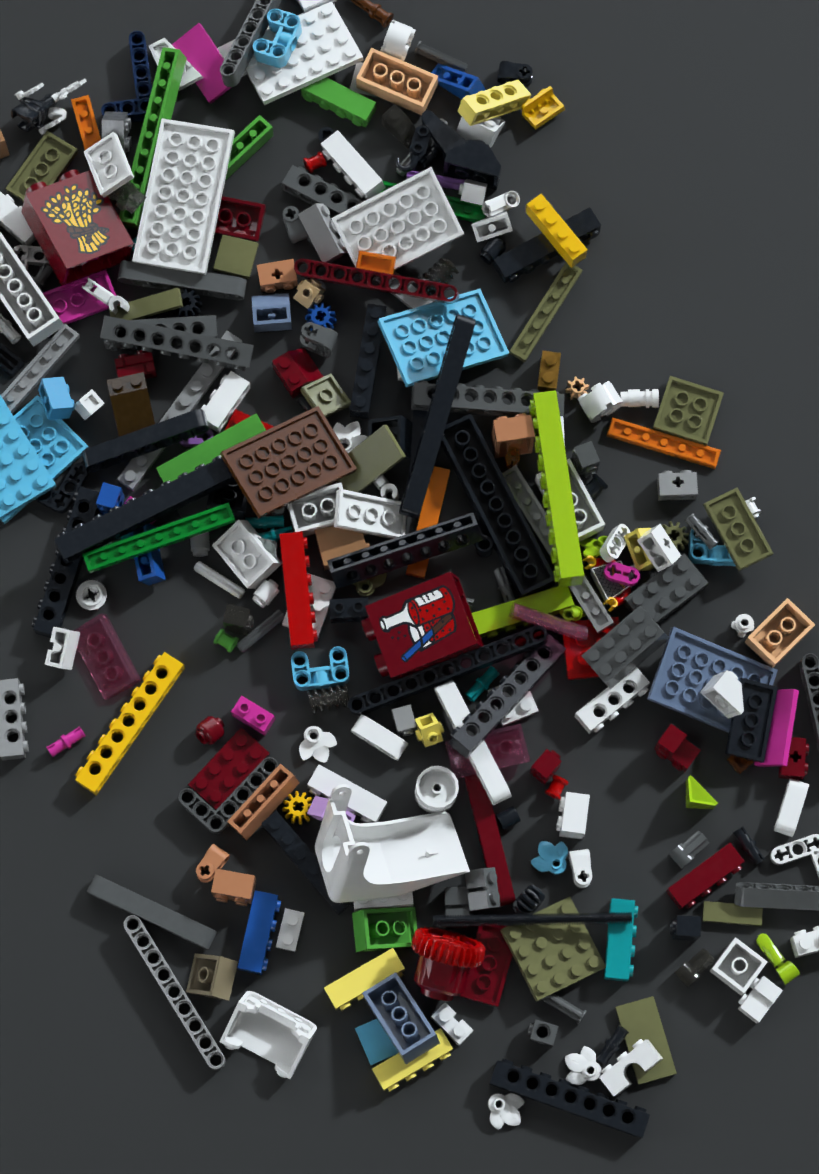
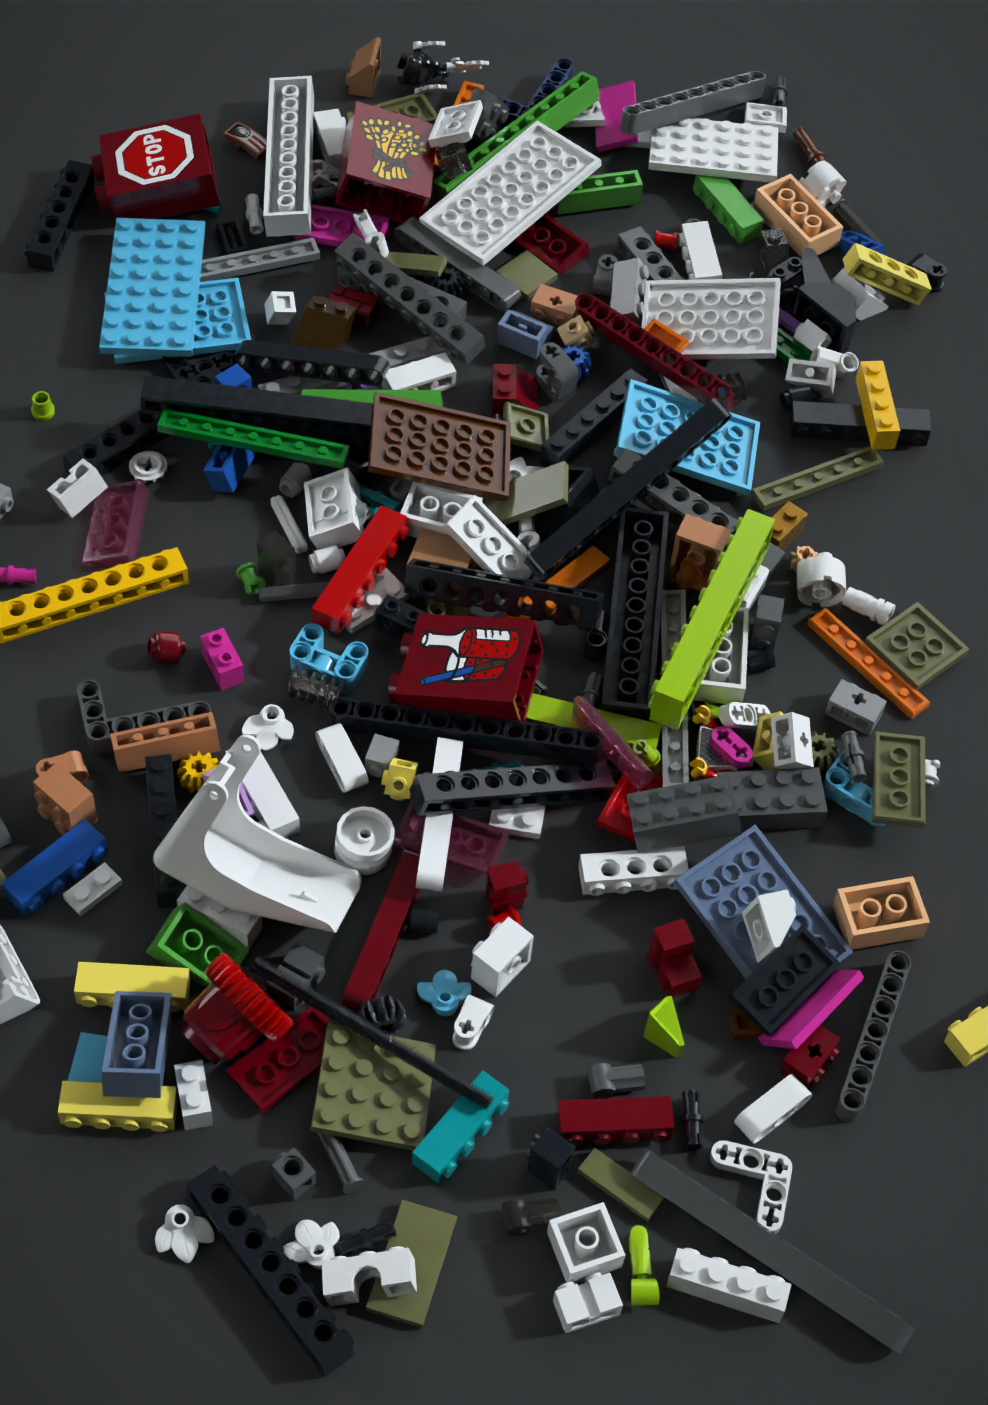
camera: 30 degrees right, 20 degrees down
(56, 112) = (443, 80): white tile -> none
(56, 398) = (253, 286): brick -> none
(228, 768) = (156, 691): dark red plate -> none
(284, 41) = (712, 121): medium azure beam -> none
(487, 889) = (336, 979): dark grey piece -> none
(541, 108) = (935, 309): yellow bracket -> none
(742, 630) = (841, 879): white brick -> none

